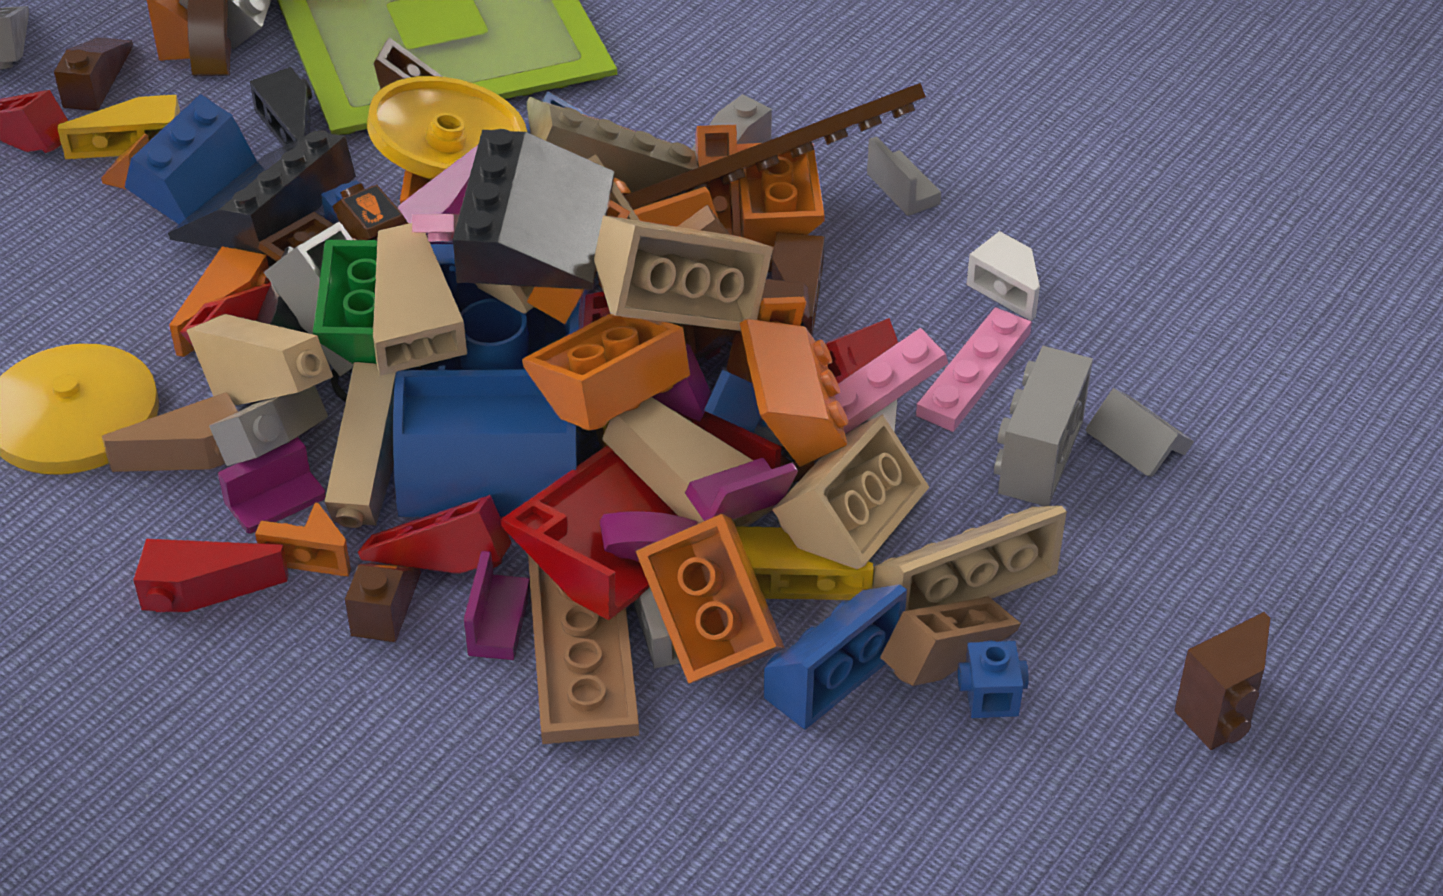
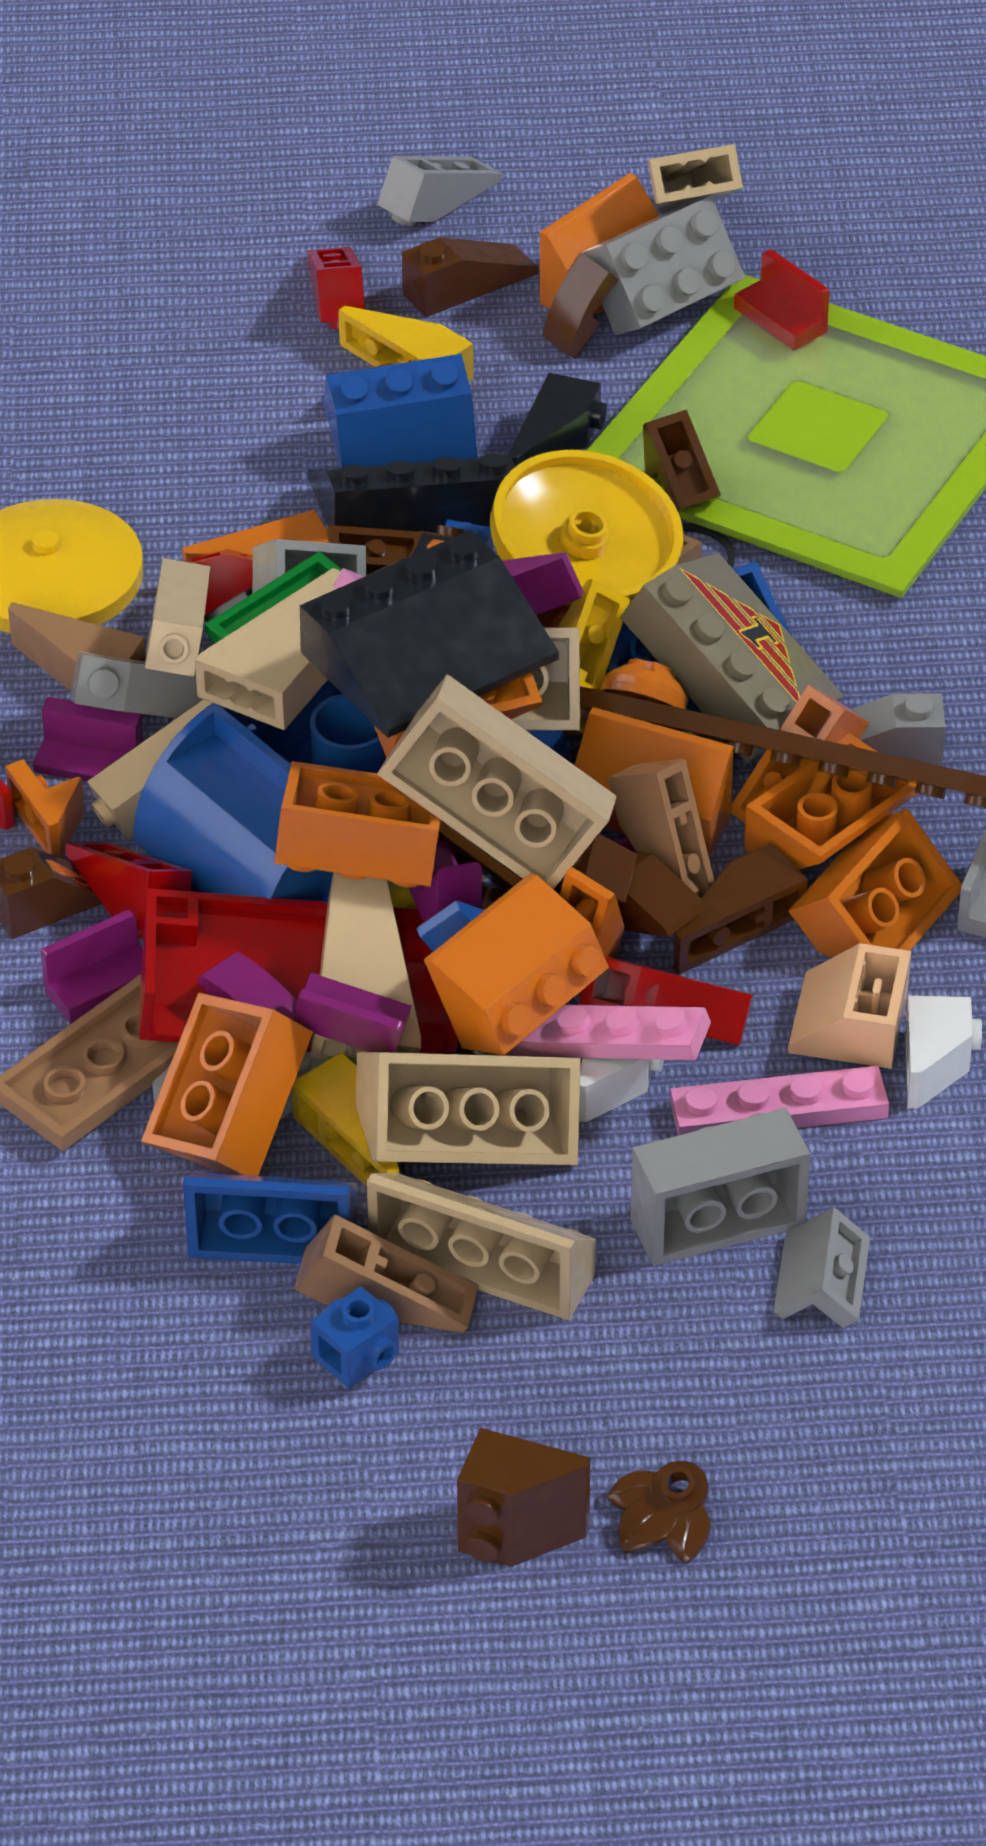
camera: 50 degrees right, 0 degrees up
(860, 226) = (878, 890): none -> orange slope
(944, 283) = (853, 1006): none -> light nougat slope
(1289, 621) = (659, 1514): none -> reddish brown plate

